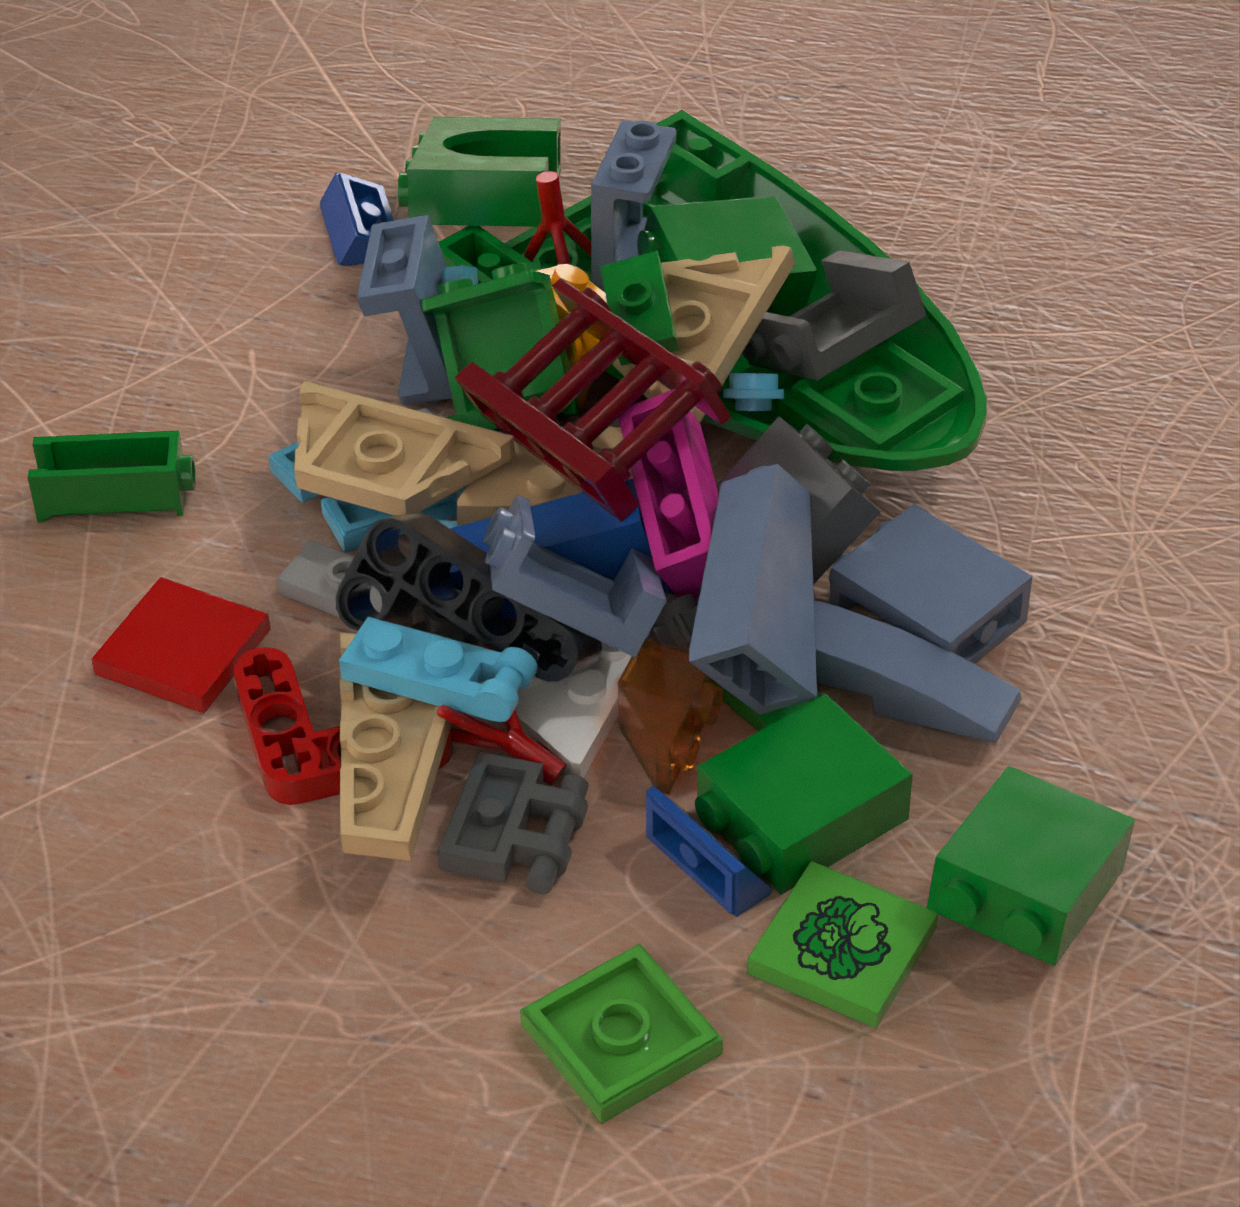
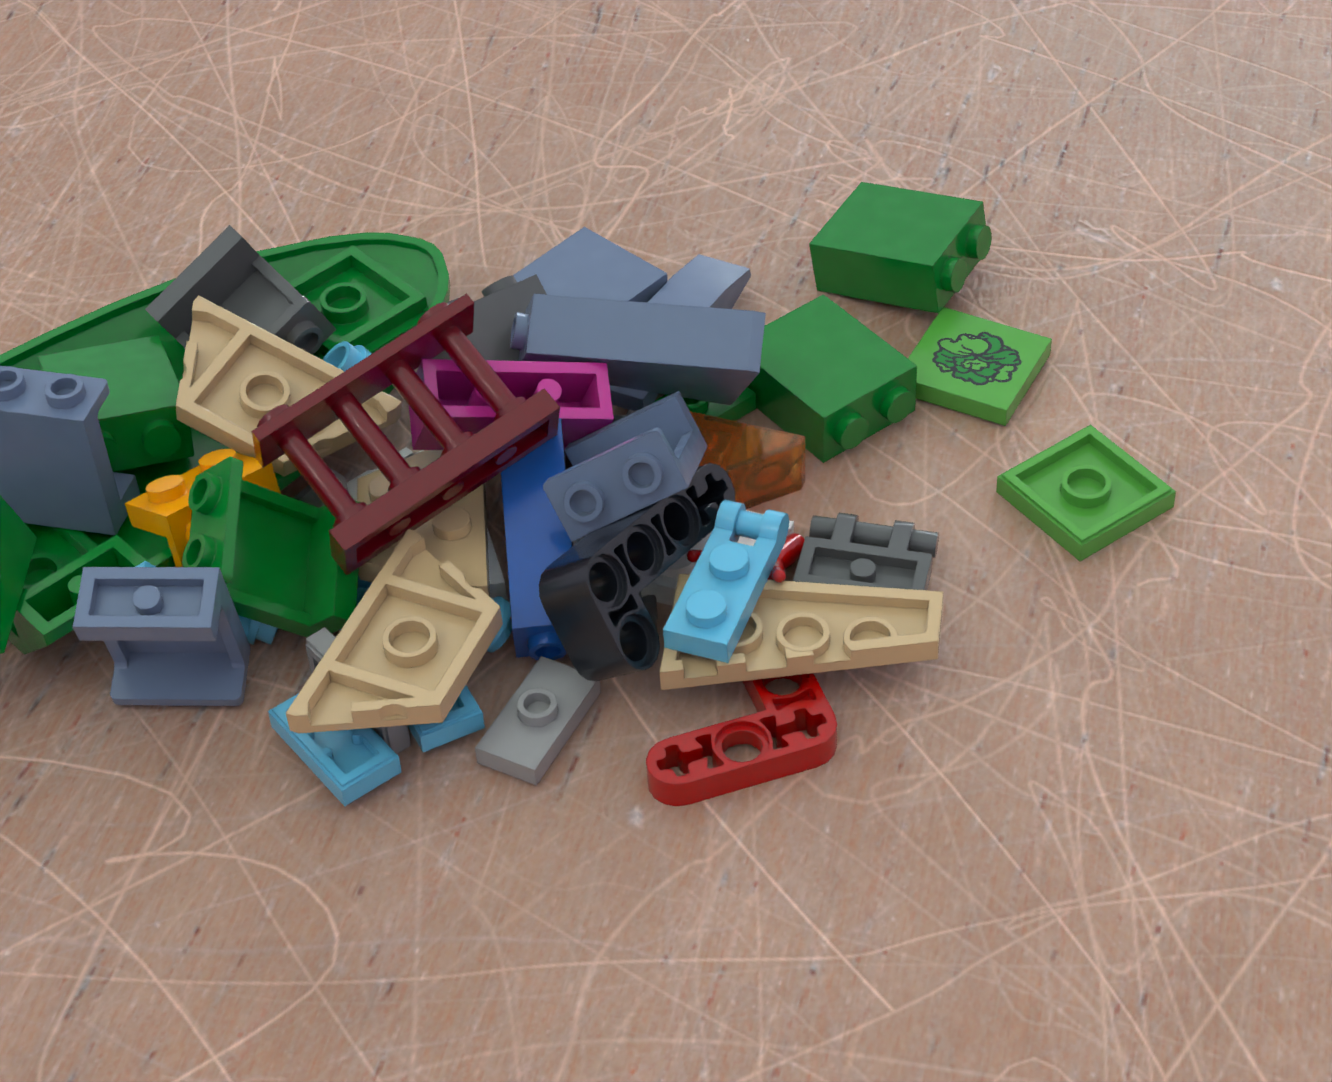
camera: 90 degrees left, 0 degrees up
(110, 473) = (349, 883): green window -> none
(180, 644) = (623, 850): red tile -> none
(554, 221) = (47, 518): red plant -> none
(640, 297) = (224, 417): green plate -> none
(702, 855) = (891, 442): blue slope -> none

